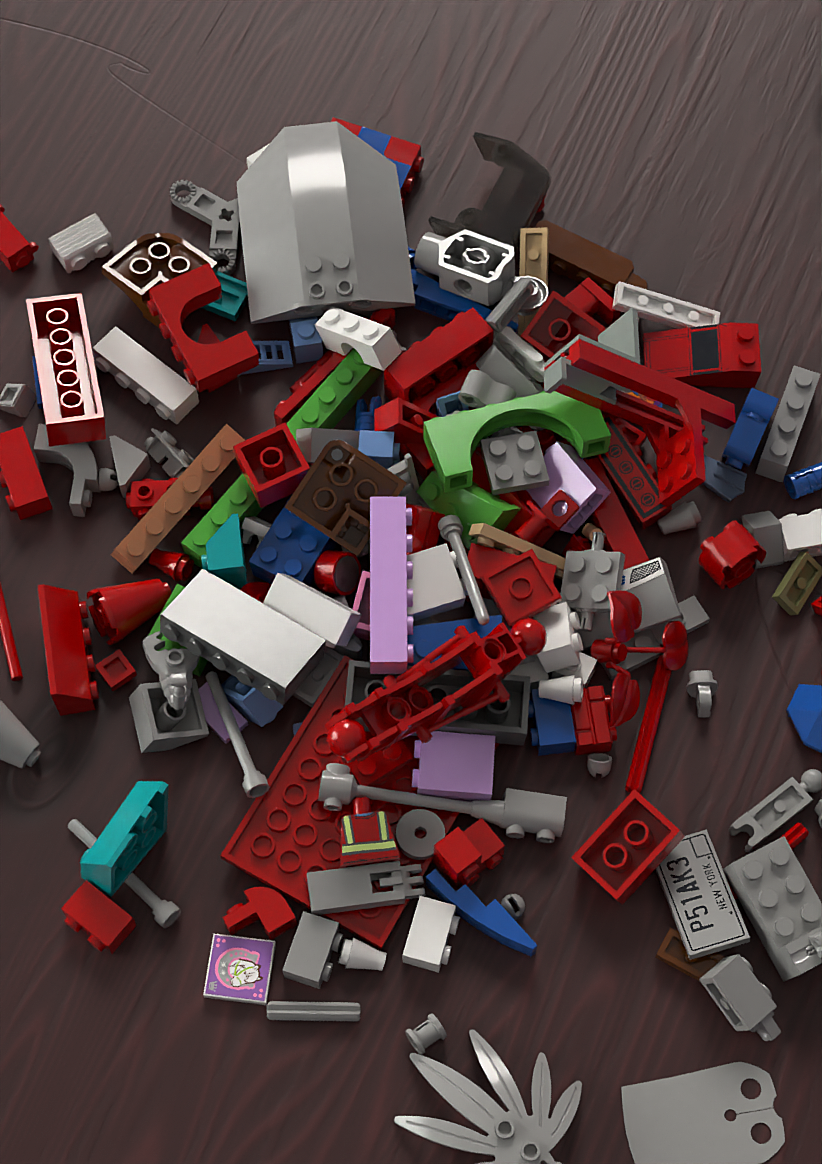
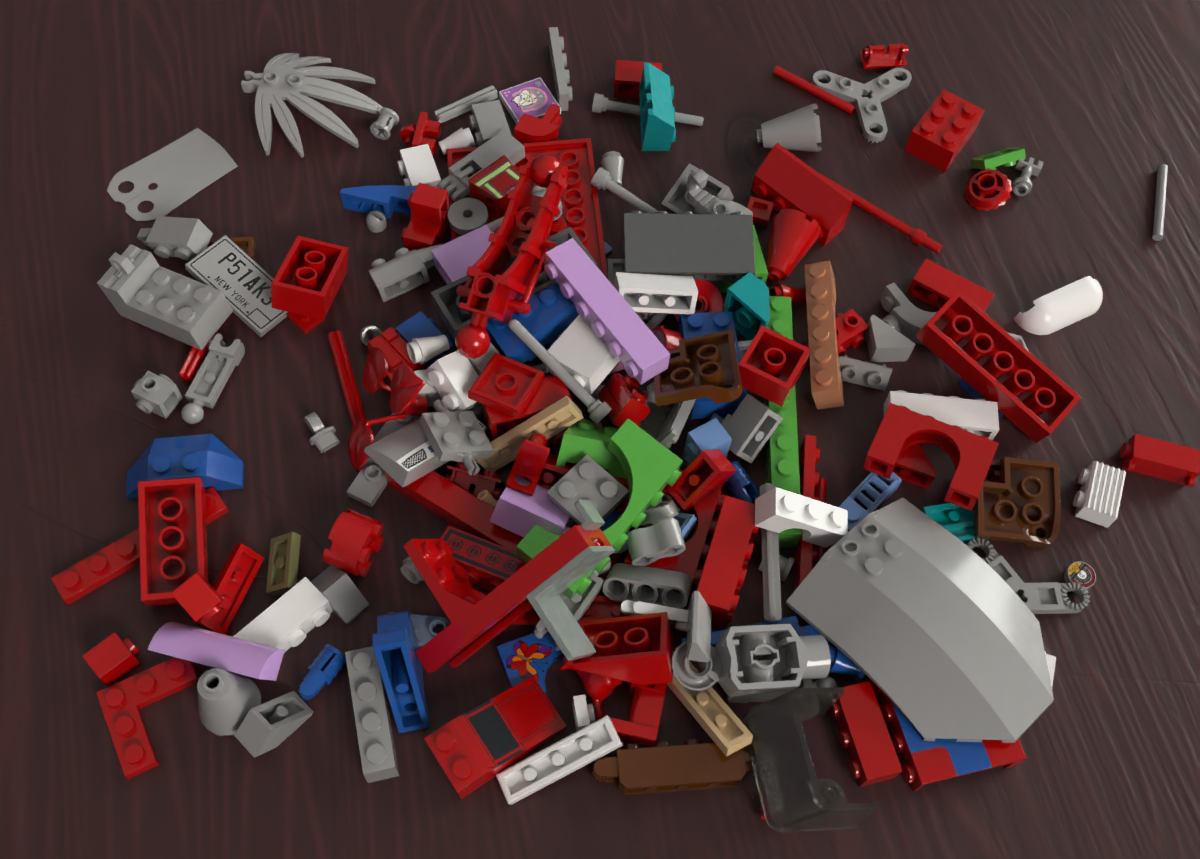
camera: 140 degrees right, 5 degrees down
(160, 206) = (1080, 573): none -> tile
(179, 981) = (558, 62): none -> light grey plate
(220, 814) = (614, 165): none -> light grey cone
(386, 995) = (418, 134): none -> red hips
(402, 336) = (770, 569): none -> light grey axle
(429, 199) = (865, 735): none -> red brick

